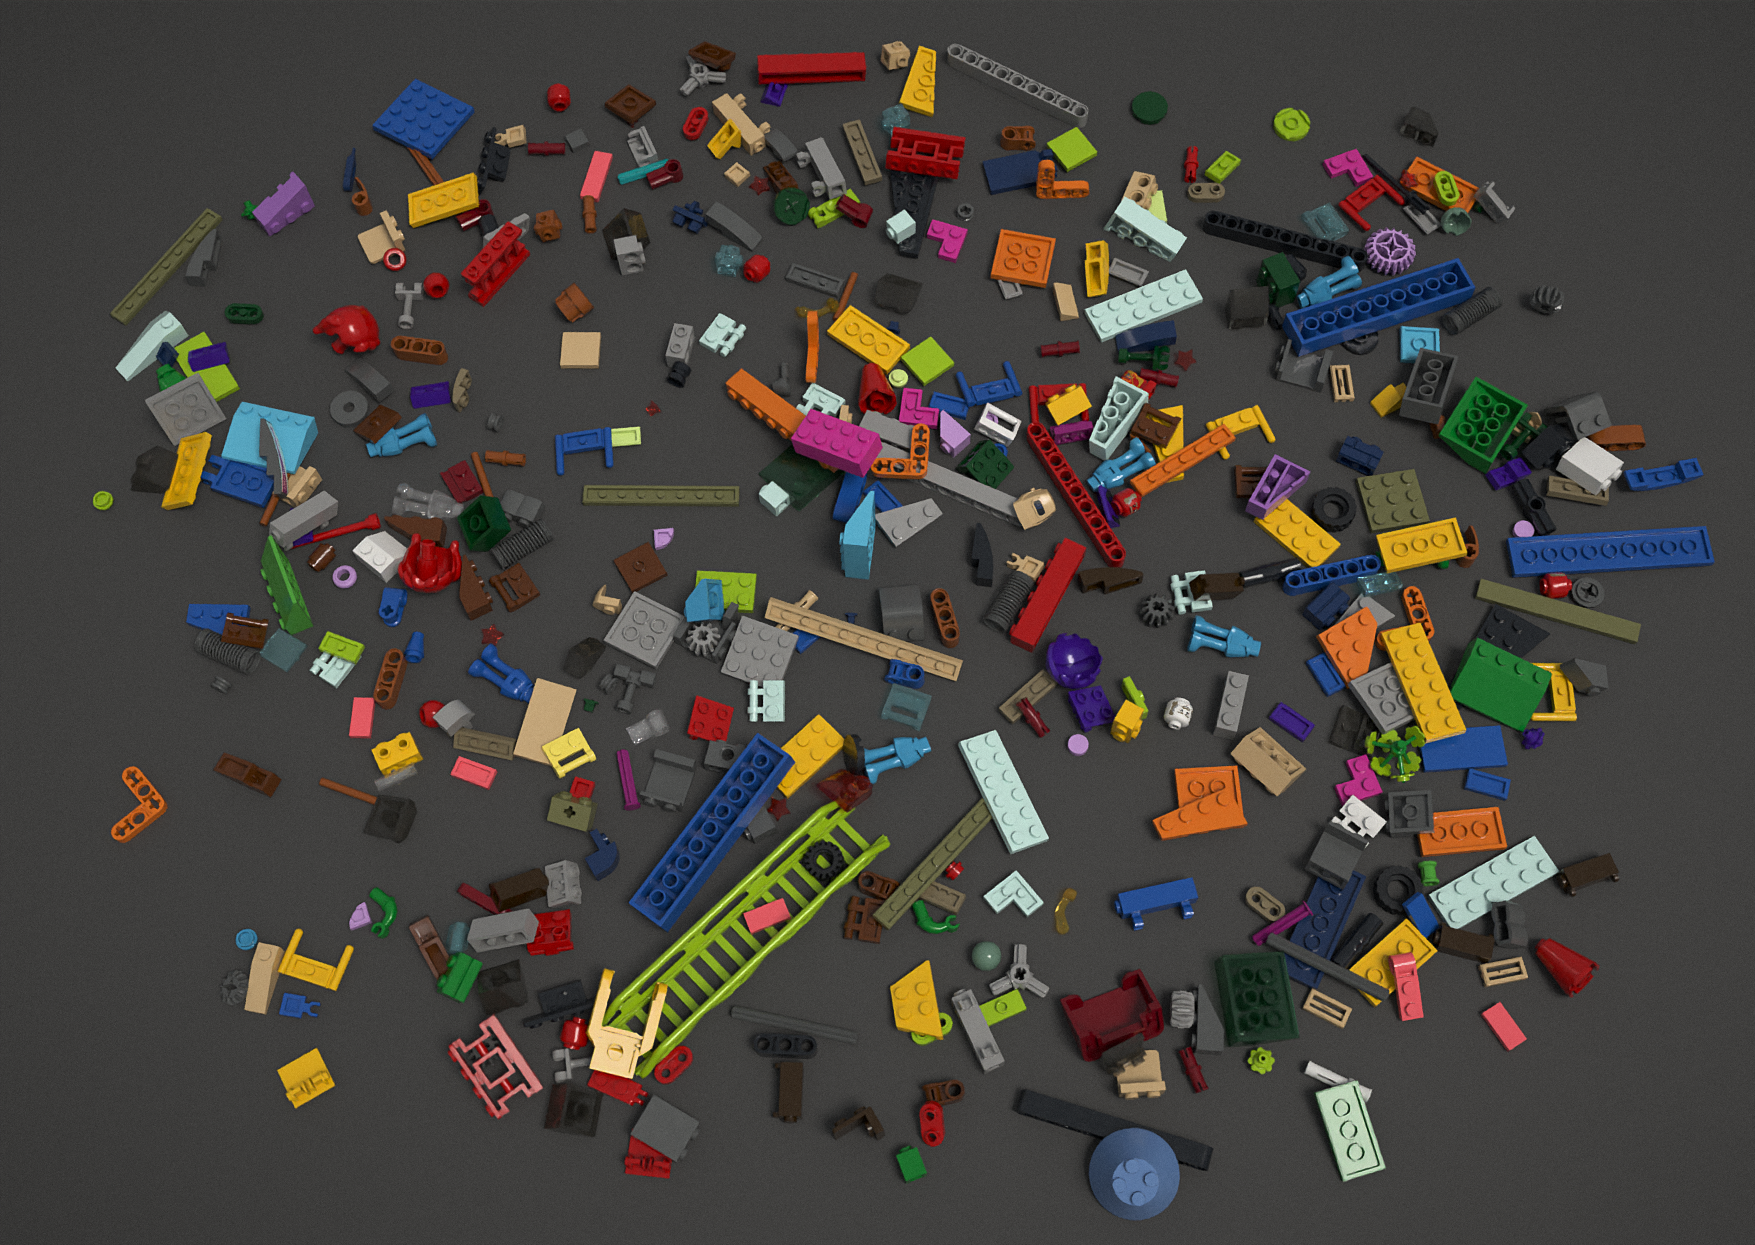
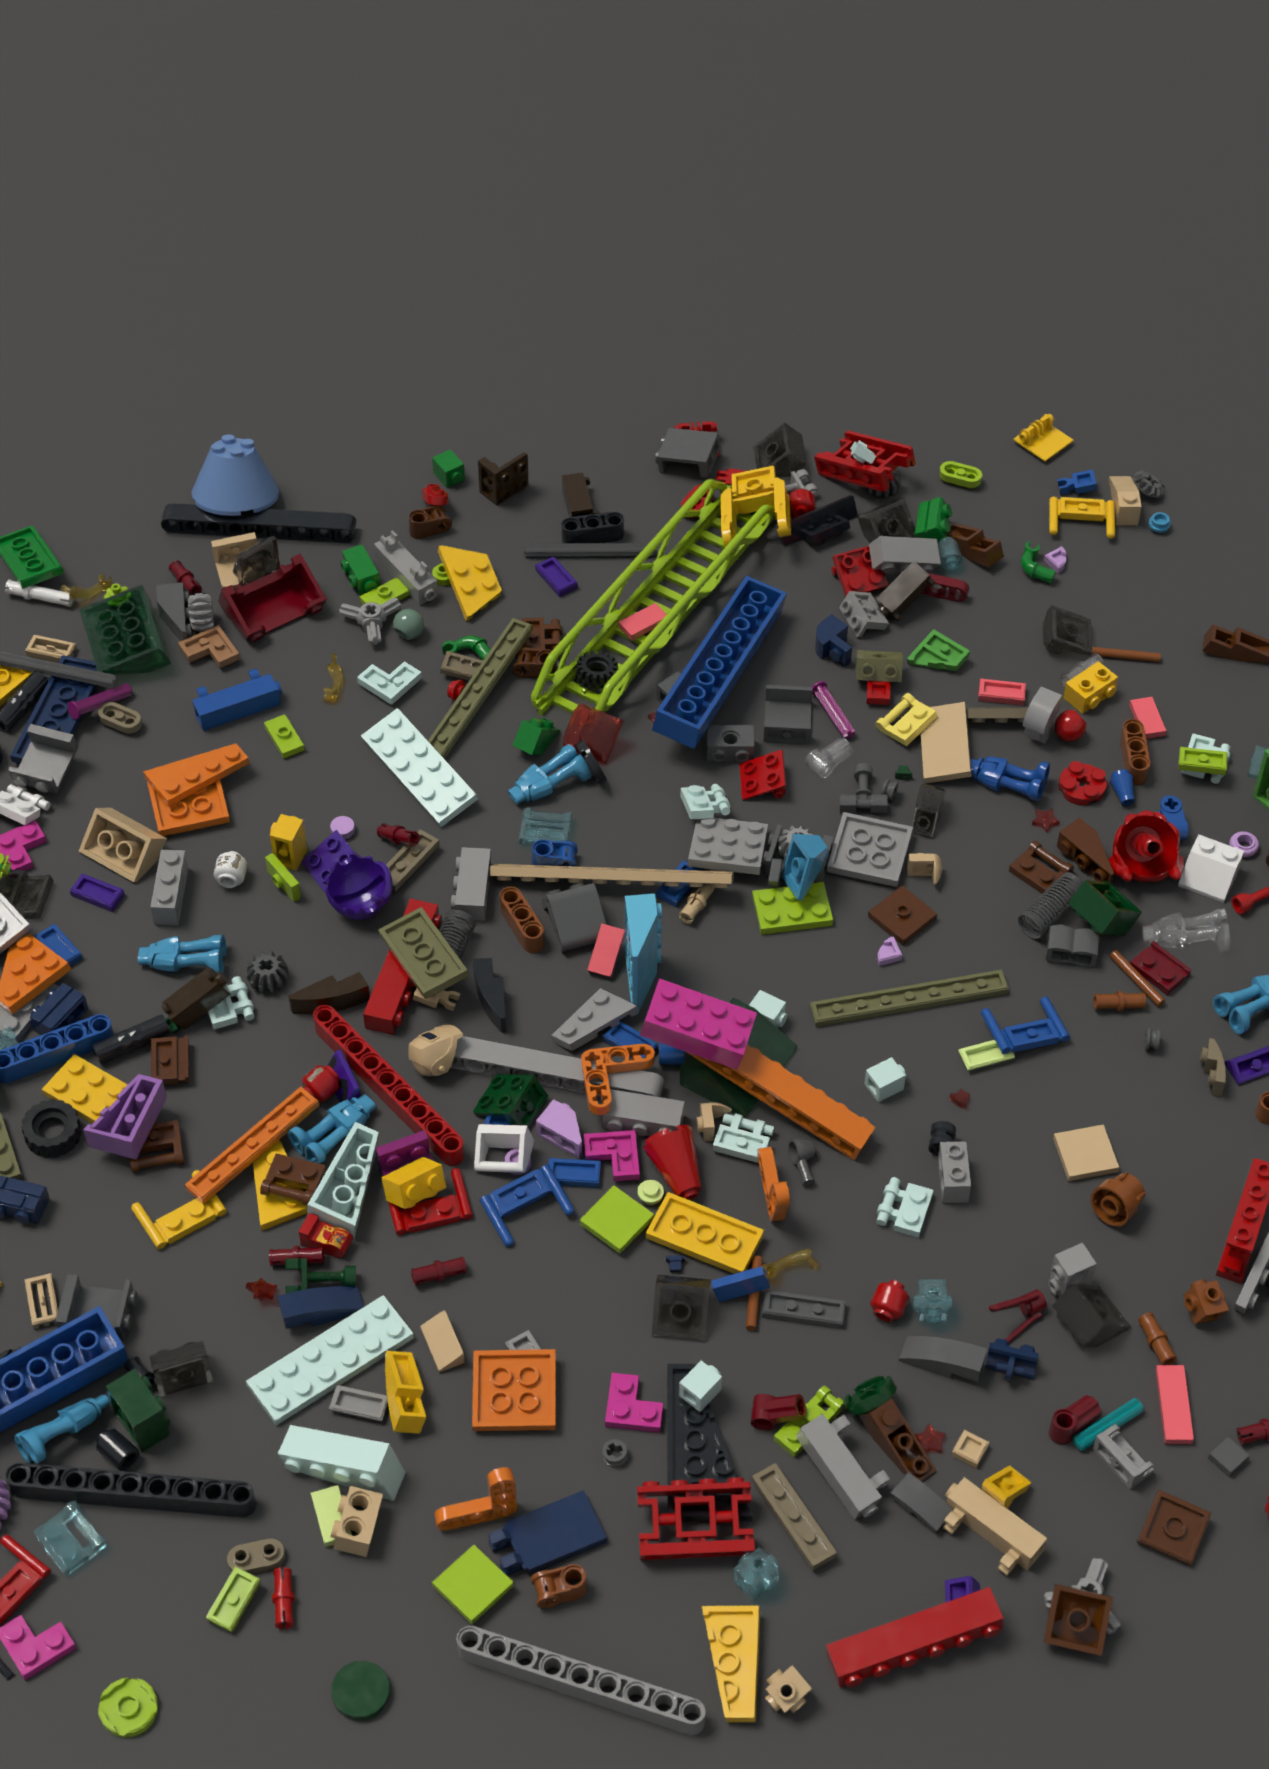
camera: 165 degrees right, 15 degrees down
(407, 1045) = (960, 474): none -> lime plate
(427, 528) = (1175, 897): reddish brown slope -> none
(447, 672) = (1085, 773): none -> red plate
(499, 1056) = (861, 453): none -> light aqua plate
(512, 824) = (939, 653): none -> bright green wing
(662, 251) = (1029, 1303): none -> dark red plant
(694, 124) = (1062, 1516): red plate -> none
(703, 427) = (885, 1079): none -> light aqua brick
(811, 751) = (647, 768): yellow plate -> none
(833, 998) = (556, 576): none -> dark purple tile
(854, 293) = (740, 1284): none -> blue tile
(883, 573) = (606, 950): none -> coral tile
(894, 802) = (535, 735): none -> green slope
(978, 660) = (472, 882): none -> light grey brick
(1020, 1039) = (360, 569): none -> green brick
(1032, 579) = (423, 953): none -> olive plate
(1117, 856) = (284, 736): none -> lime plate
(1174, 978) = (210, 642): none -> medium nougat plate
(1239, 549) = (170, 1059): none -> reddish brown plate
(1293, 1072) = (80, 593): none -> clear yellow piece

